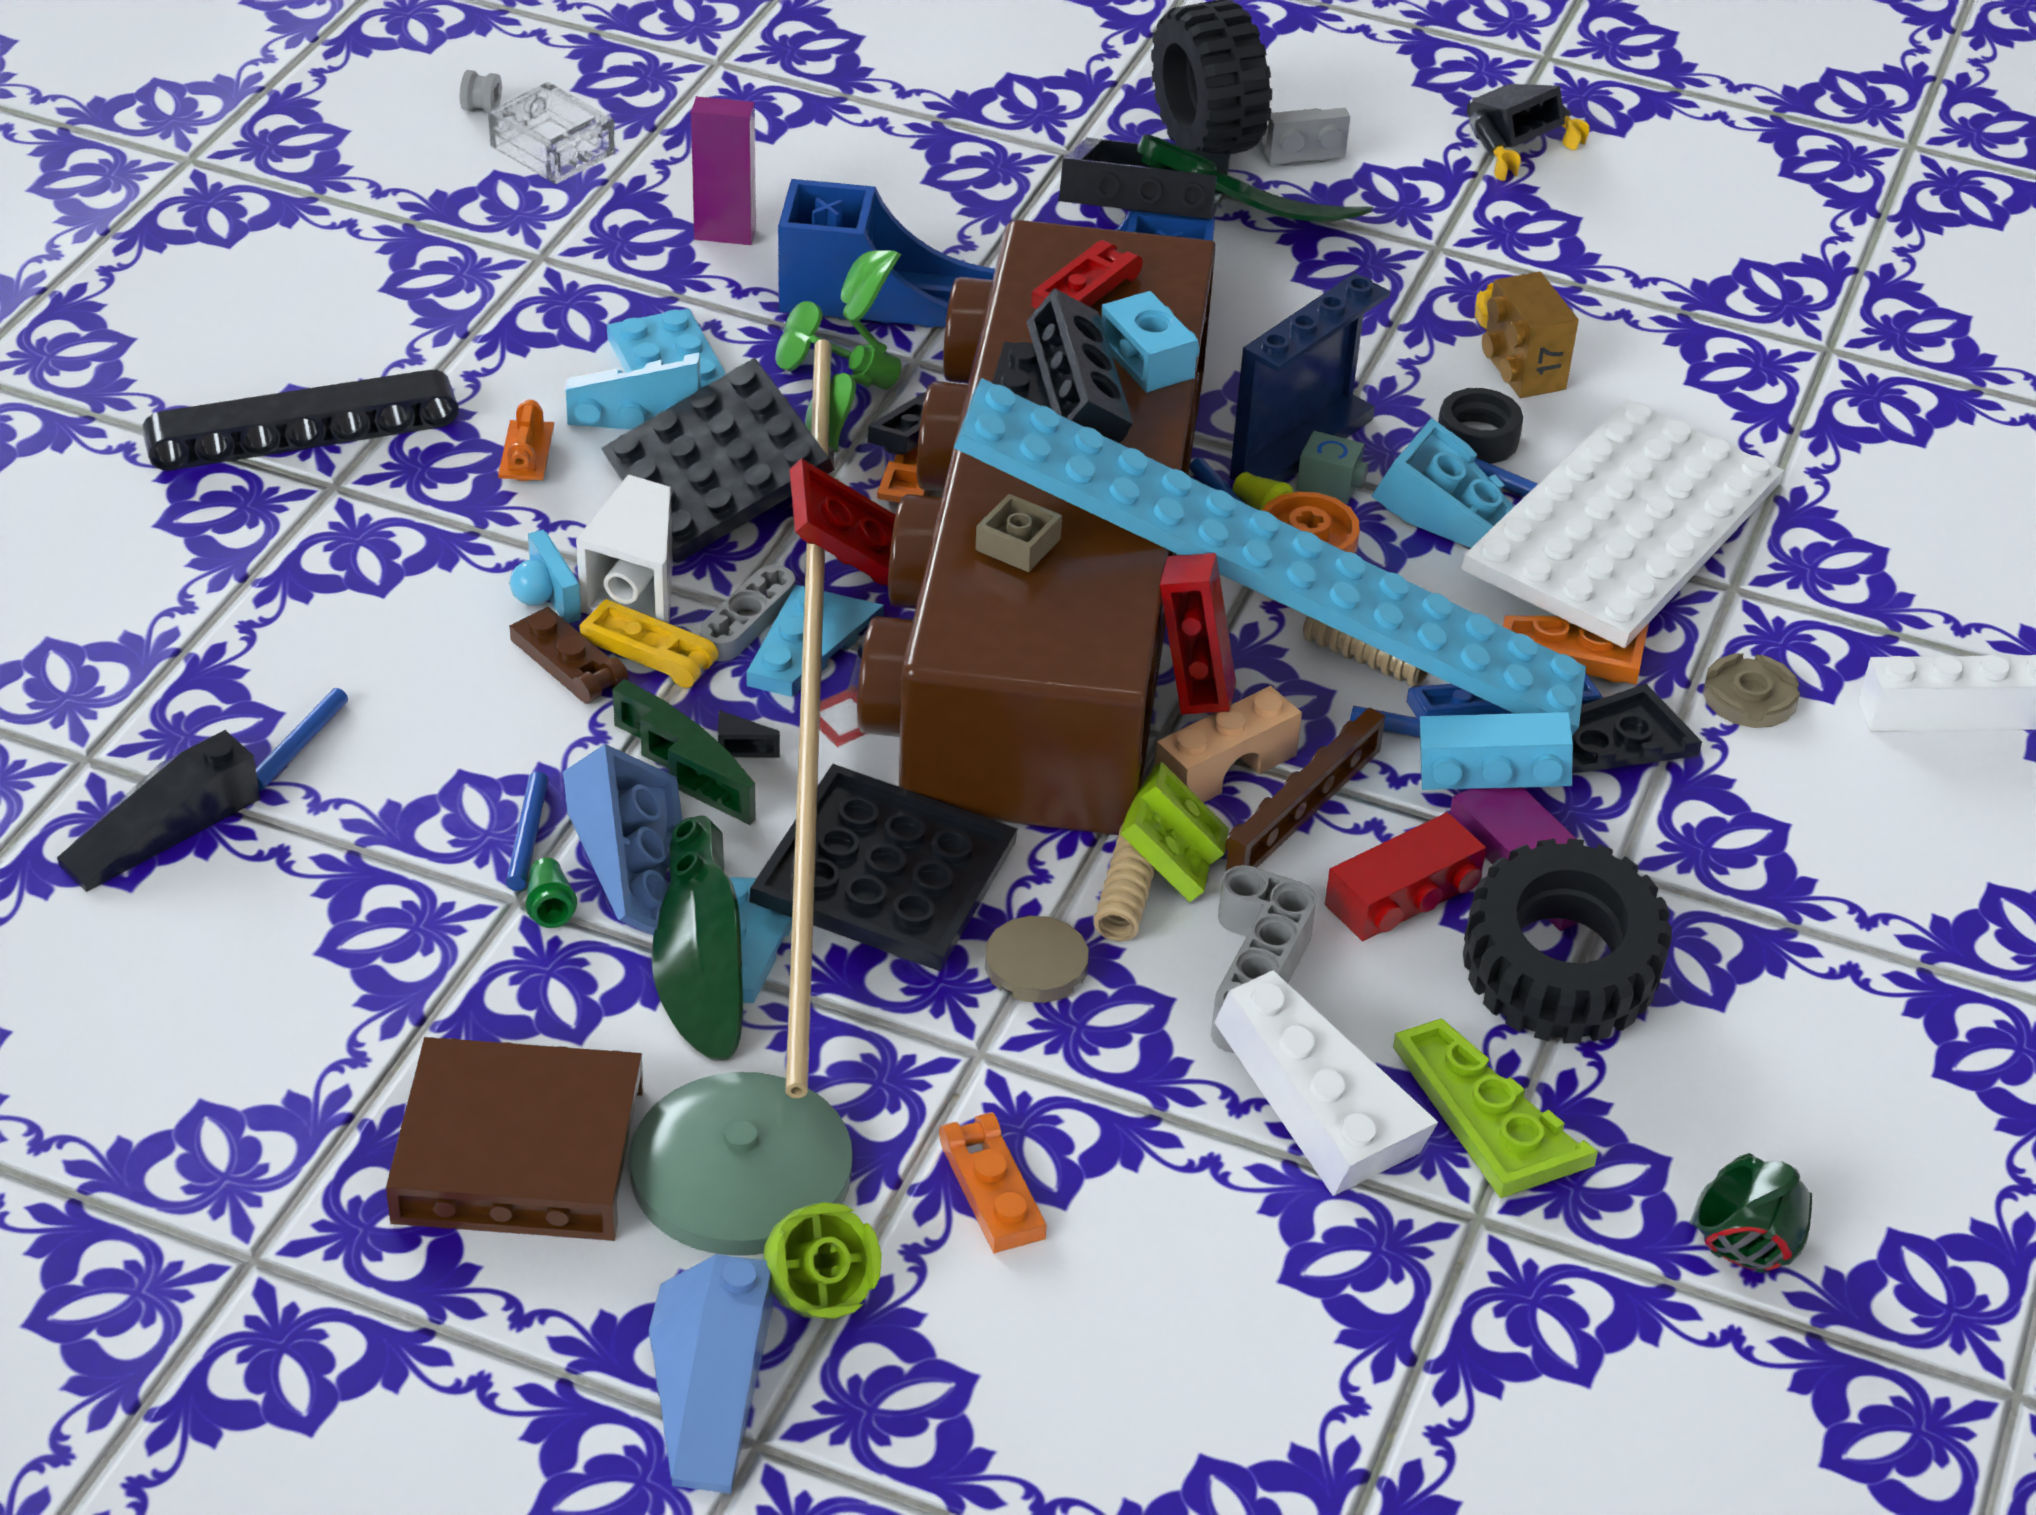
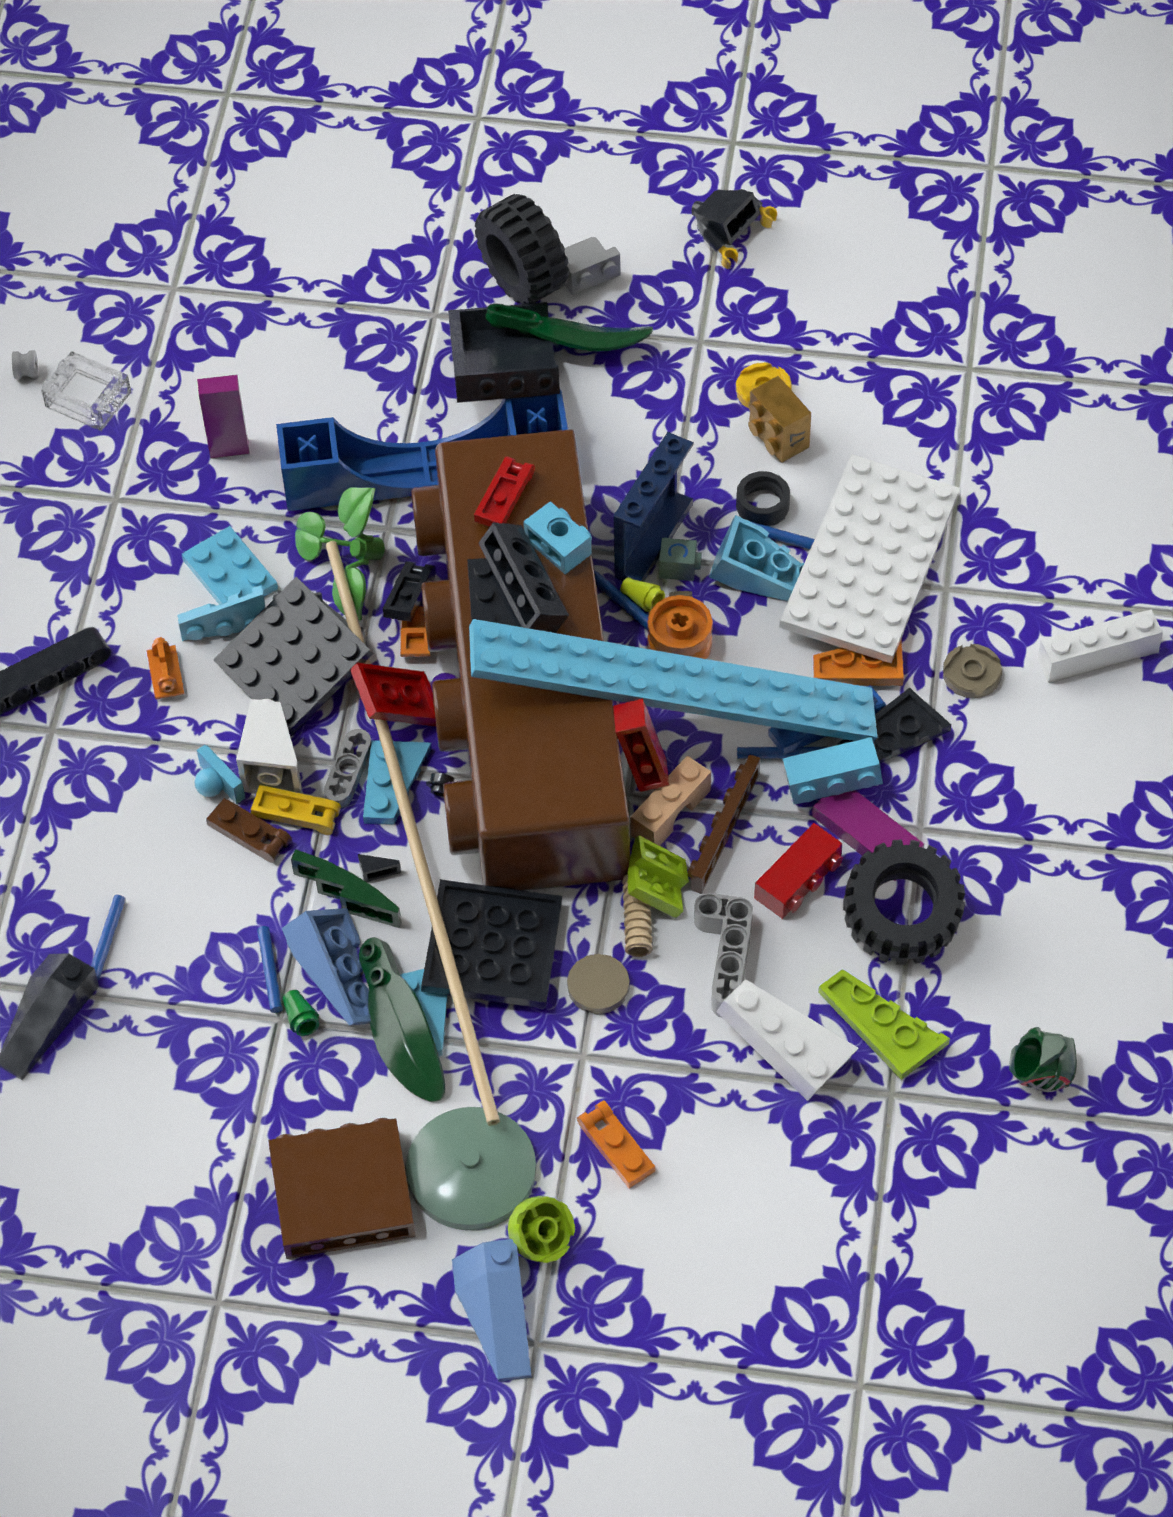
camera: 10 degrees left, 15 degrees up
(839, 711) = (430, 825): clear piece -> none
(1018, 532) = (521, 716): dark tan piece -> none

